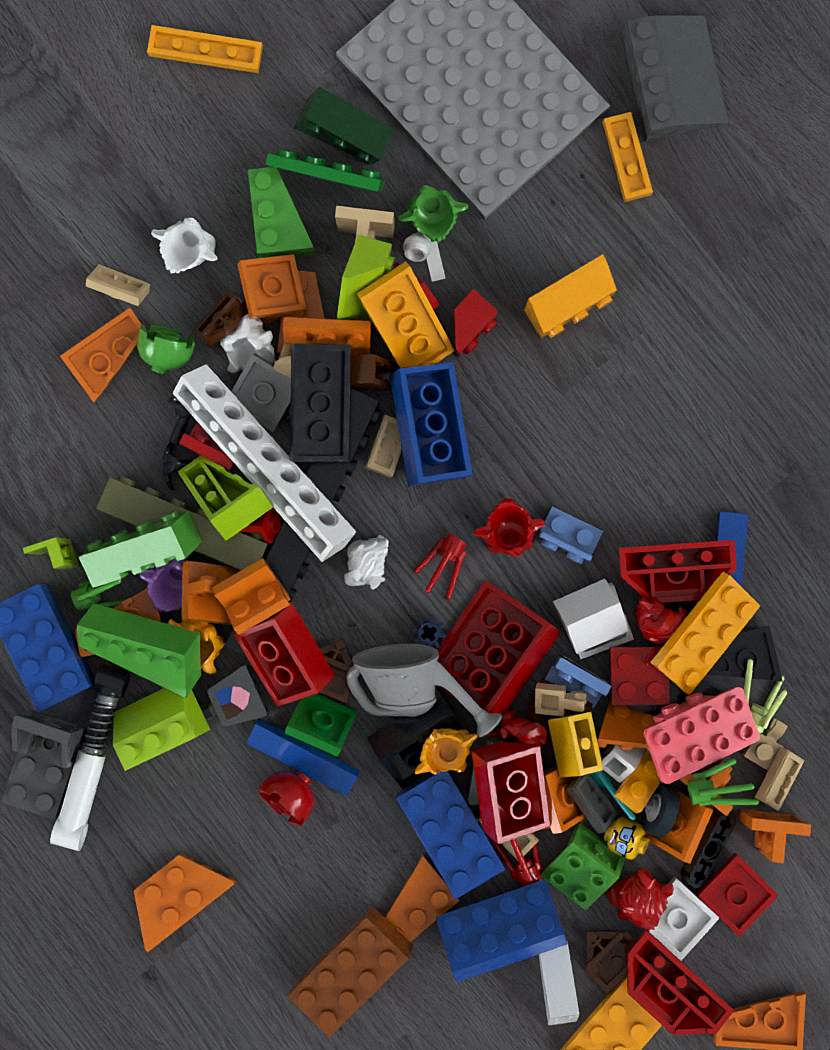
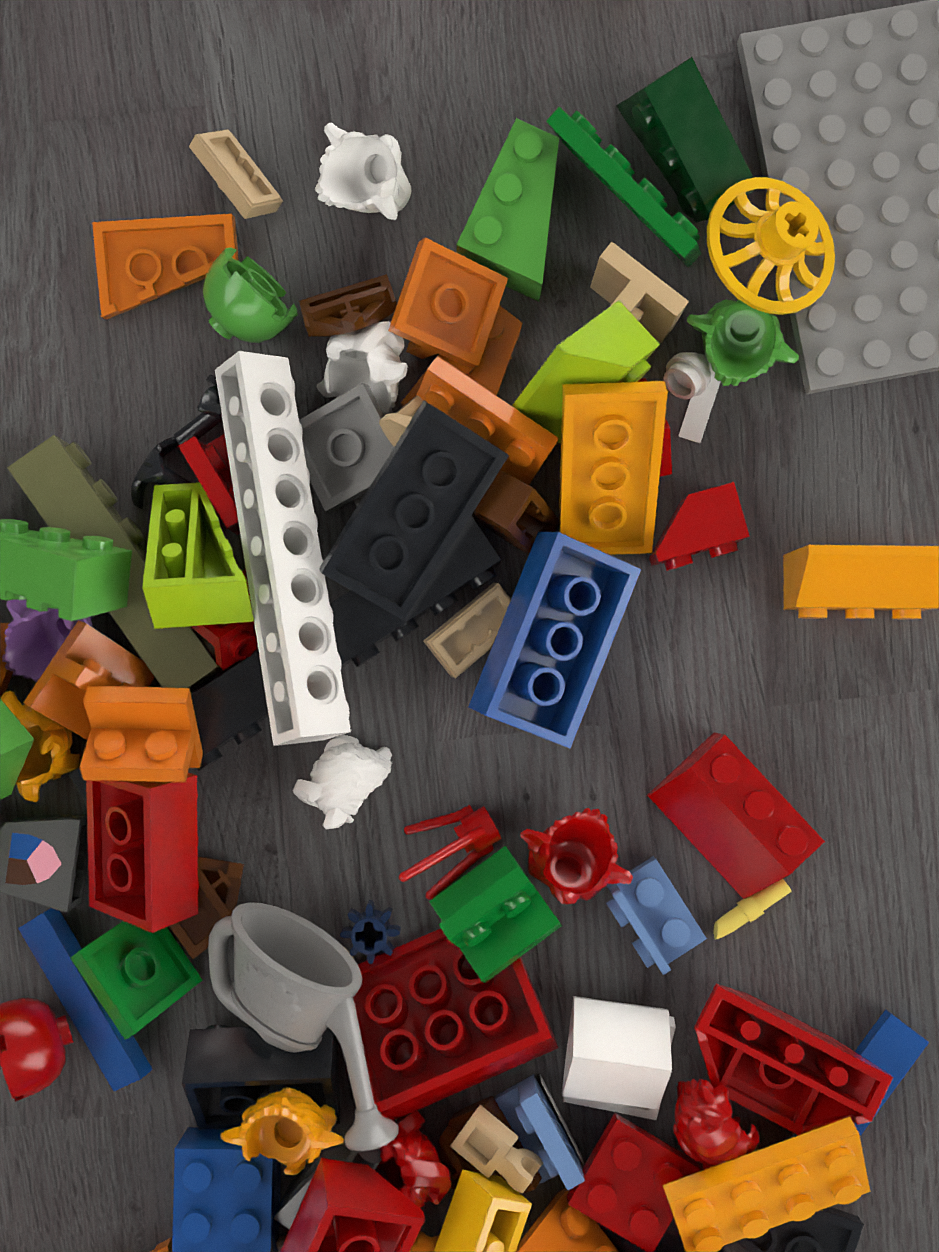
camera: 25 degrees right, 0 degrees up
(420, 150) = (782, 239): none -> yellow wheel
(486, 583) = (494, 914): none -> green bracket
(579, 460) = (735, 816): none -> red slope
(617, 502) = (750, 908): none -> light yellow piece

